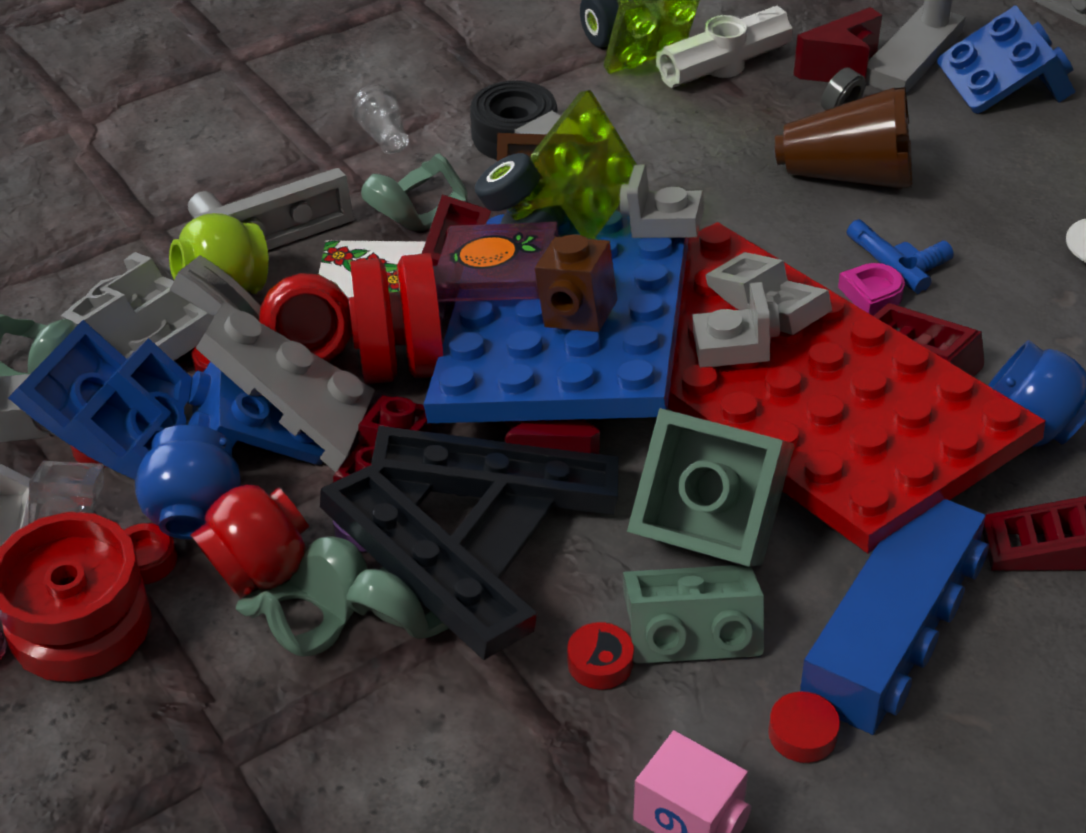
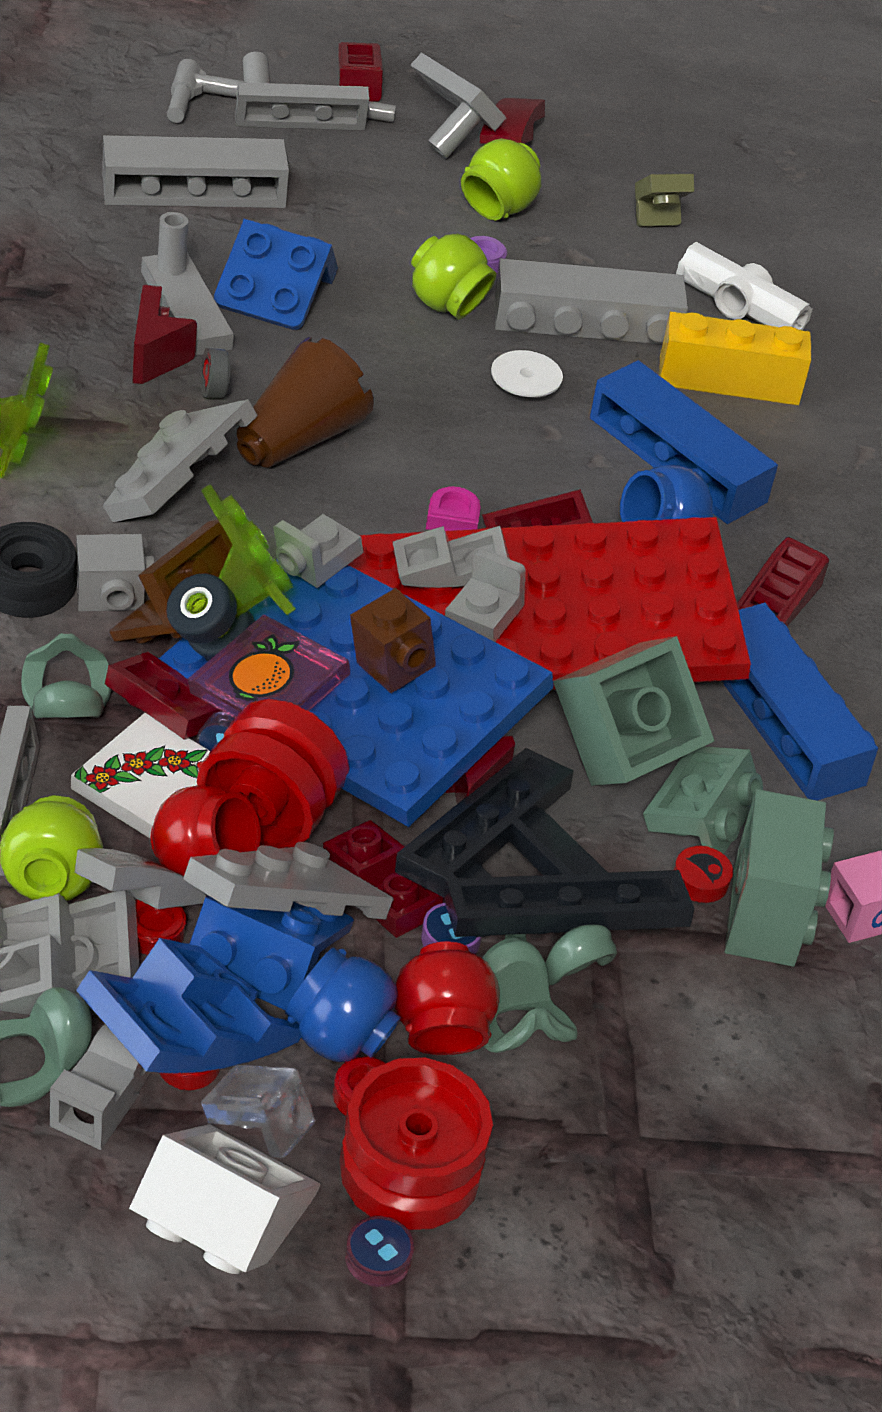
camera: 65 degrees left, 0 degrees up
(604, 690) = (778, 878): none -> sand green brick
(705, 114) = (167, 458): none -> light grey wing
(724, 46) = (72, 393): white piece -> none
(803, 727) = (847, 809): red tile -> none
(902, 257) = (432, 476): blue hose -> none

